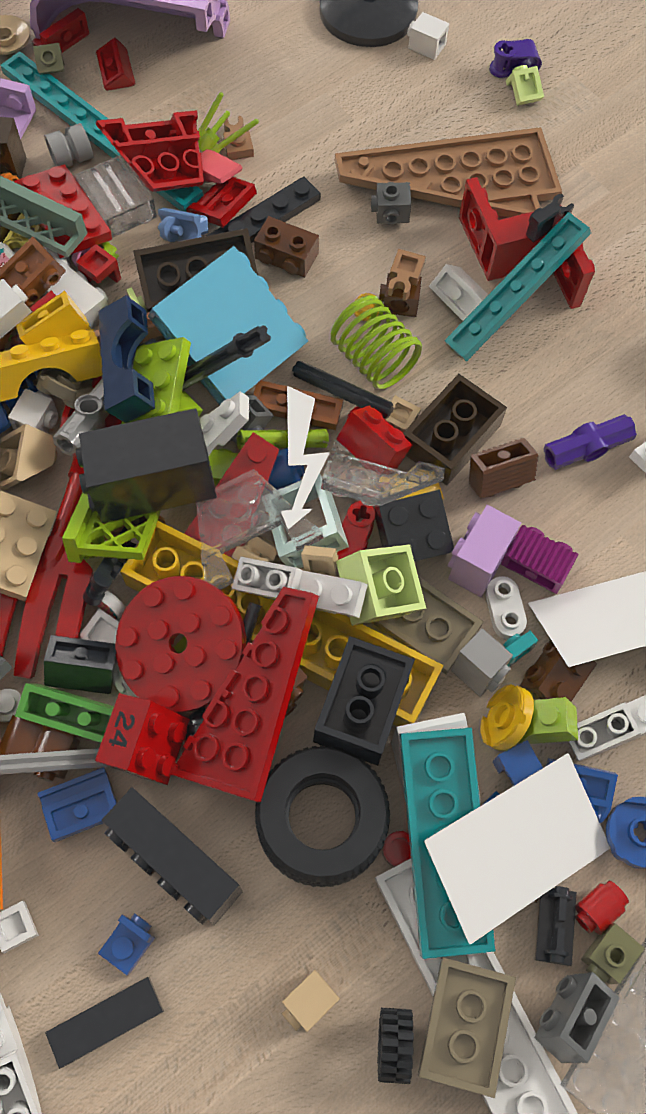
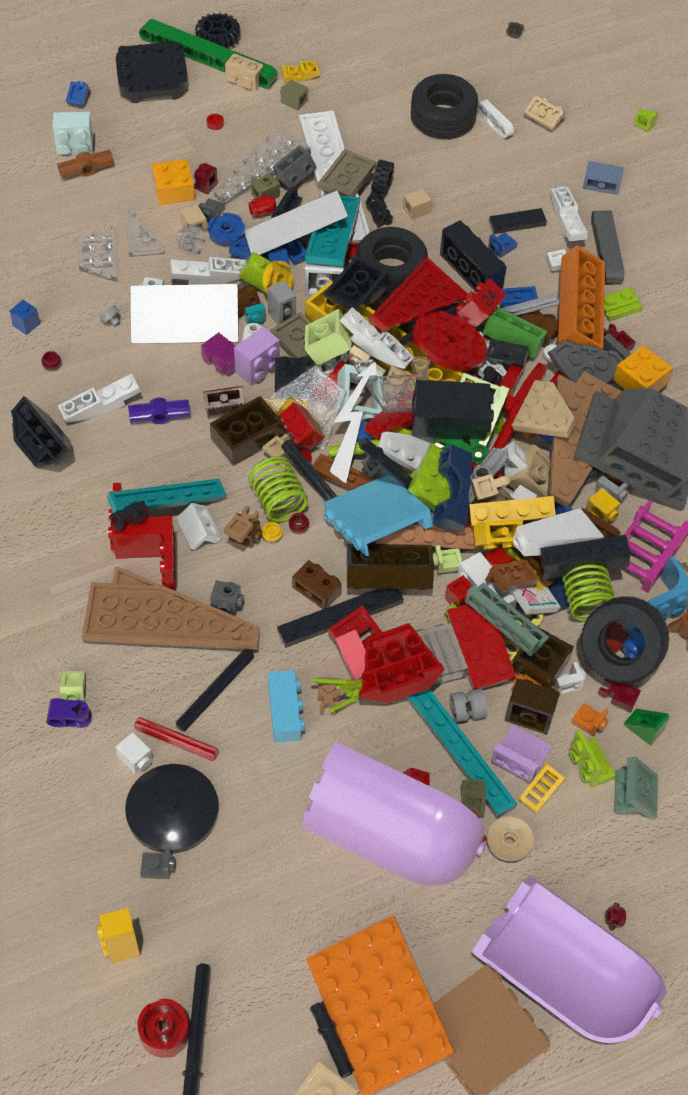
camera: 165 degrees left, 10 degrees down
(46, 456) = (516, 459): none -> white panel
(77, 380) = (487, 486): none -> tan plate
(181, 225) = (385, 604): medium blue hips -> none
(282, 109) = (285, 706): none -> medium azure brick
(328, 323) = (298, 518): none -> dark red plate
(371, 112) = (214, 689): none -> black axle
(376, 956) = (377, 208): none -> black hinge
(391, 63) = (176, 738): none -> red axle

